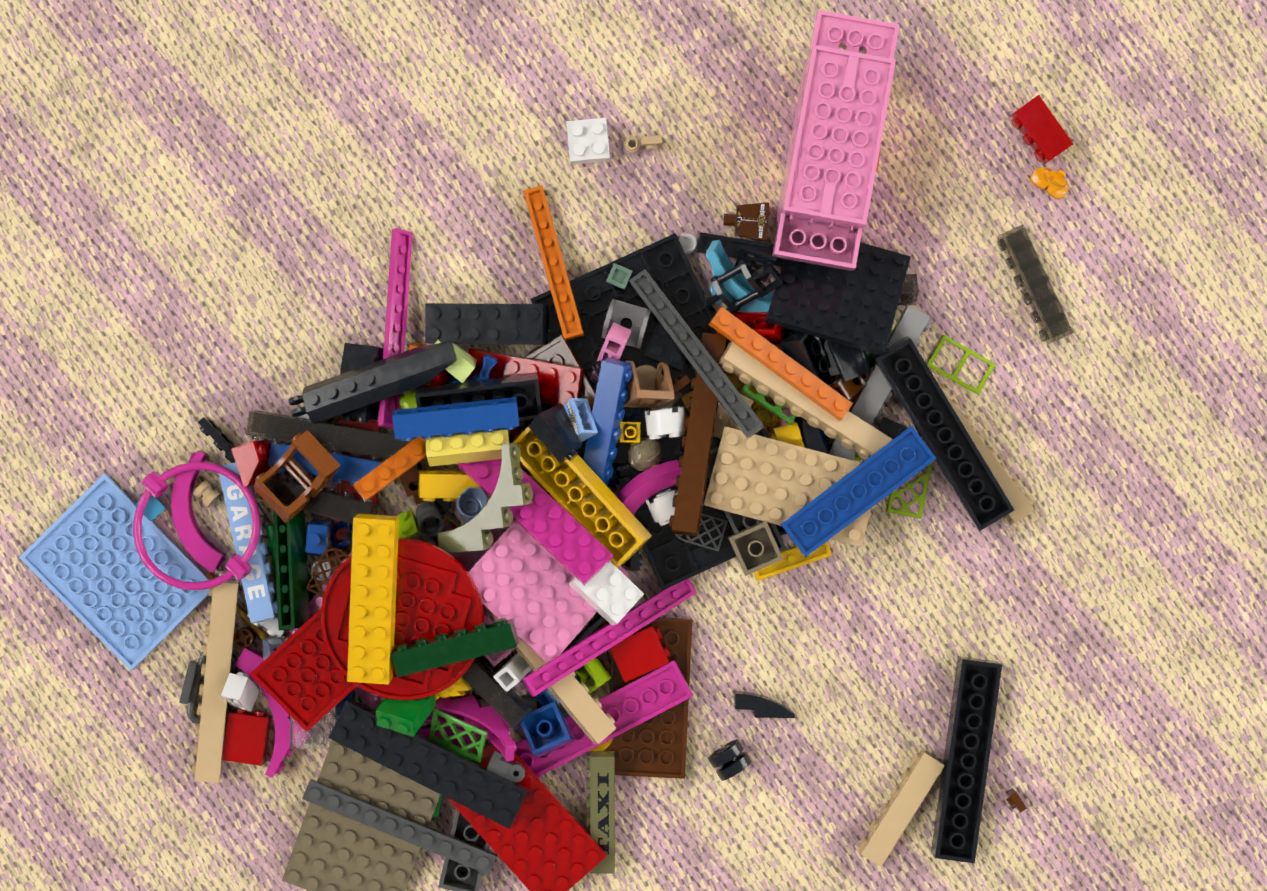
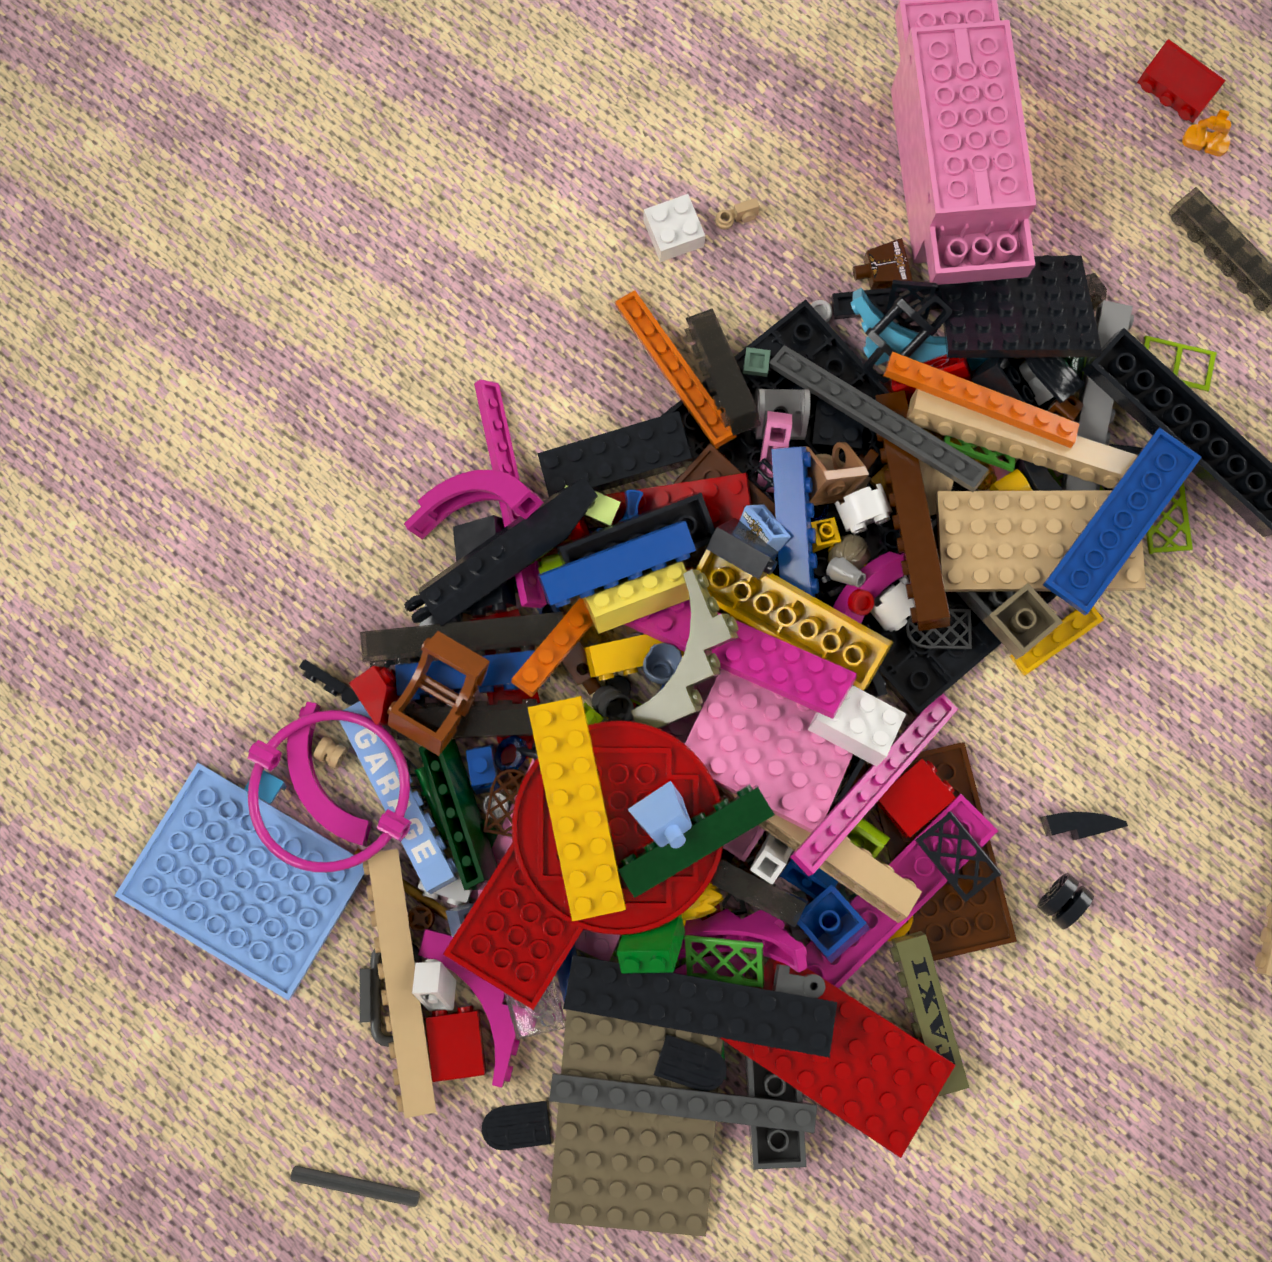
camera: 20 degrees left, 10 degrees down
(148, 816) = (355, 1186): none -> dark grey axle
(277, 807) = (517, 1126): none -> black window
(362, 317) = (468, 489): none -> dark pink arch
(413, 801) = (690, 1064): none -> black window
(434, 624) = (663, 816): none -> light blue torso
(588, 278) = (722, 372): none -> clear smoke brick
(632, 467) = (843, 571): none -> light grey cone
(638, 496) = (861, 602): none -> red tile
(646, 720) = (962, 835): none -> black window

